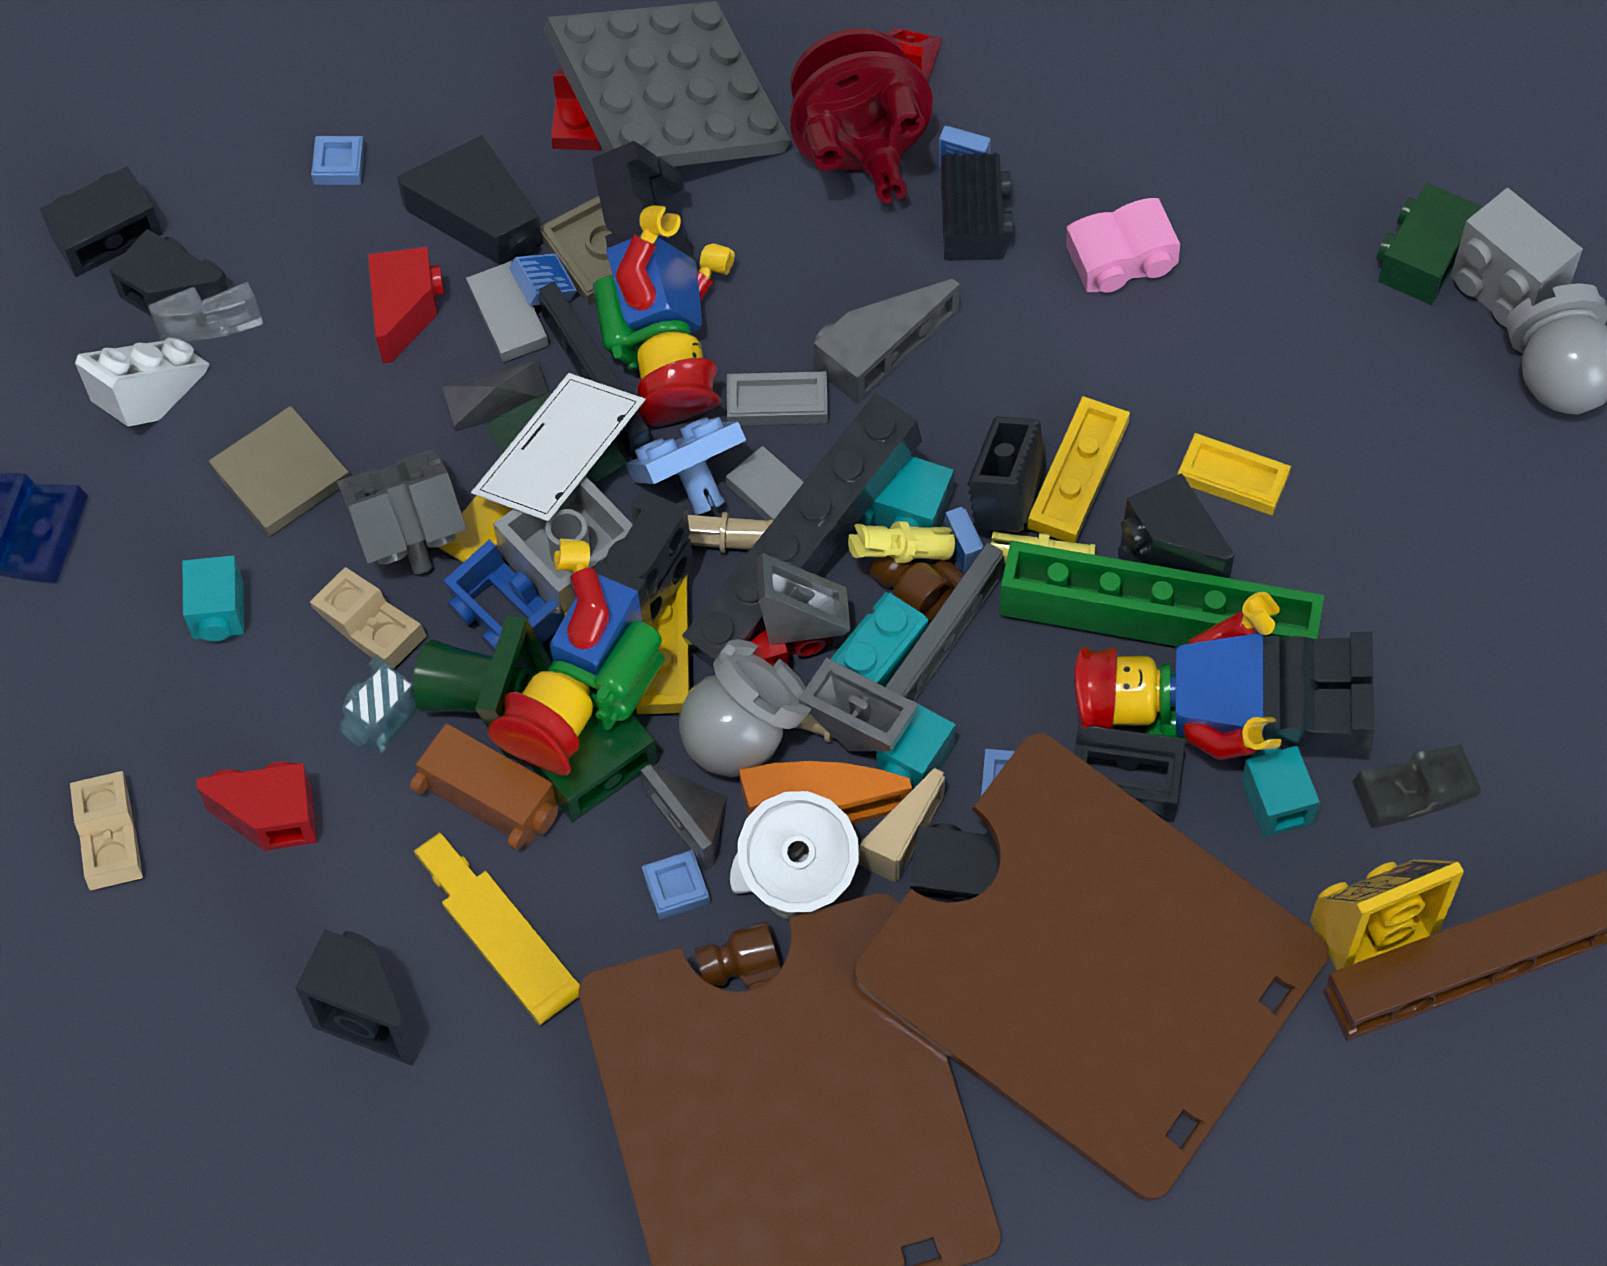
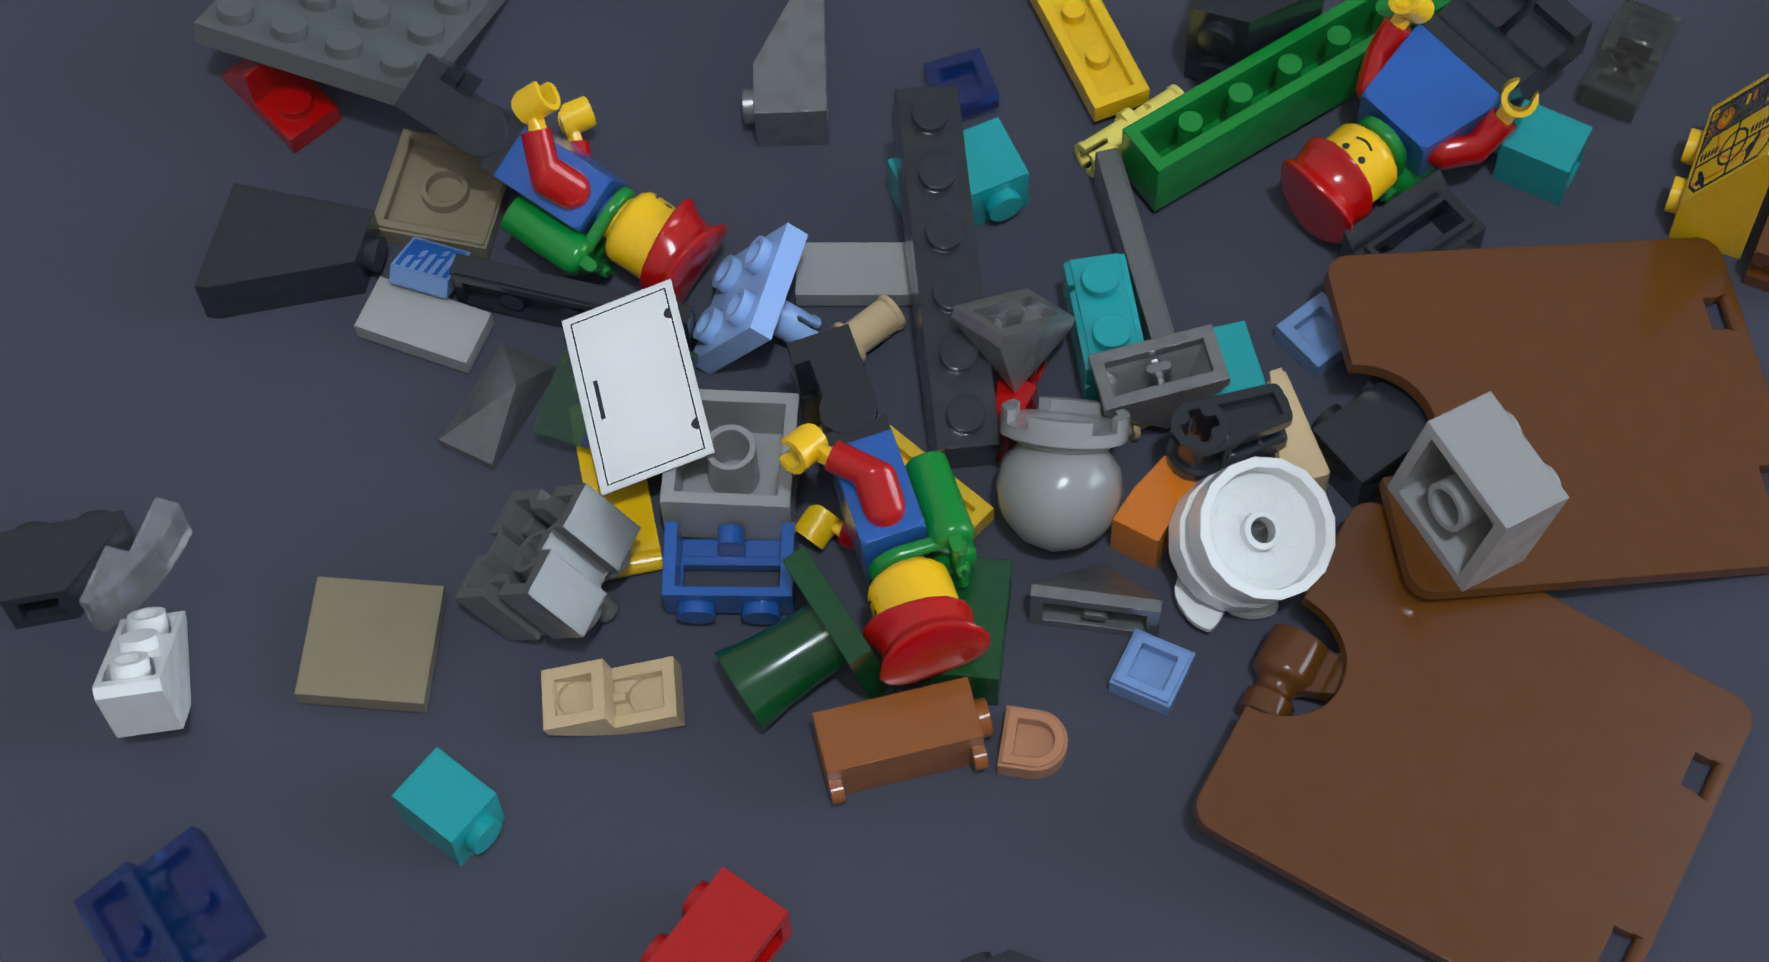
camera: 45 degrees left, 0 degrees up
(338, 160) = (98, 326): medium blue tile -> none
(378, 707) = (719, 759): clear light blue brick -> none
(402, 297) = (312, 391): red slope -> none
(499, 932) = (1048, 853): yellow piece -> none
(560, 861) = (1031, 744): none -> nougat tile
(777, 398) = (760, 193): light grey tile -> none
(855, 777) = (1227, 430): none -> black piece
(902, 542) = (1025, 212): light yellow pin -> none
(918, 584) = (1068, 237): reddish brown piece -> none
(937, 941) = (1477, 490): none -> light grey brick
(963, 432) = (973, 77): none -> clear blue plate
(966, 538) = (1063, 175): medium blue tile -> none
(1007, 474) = (1046, 82): black brick -> none

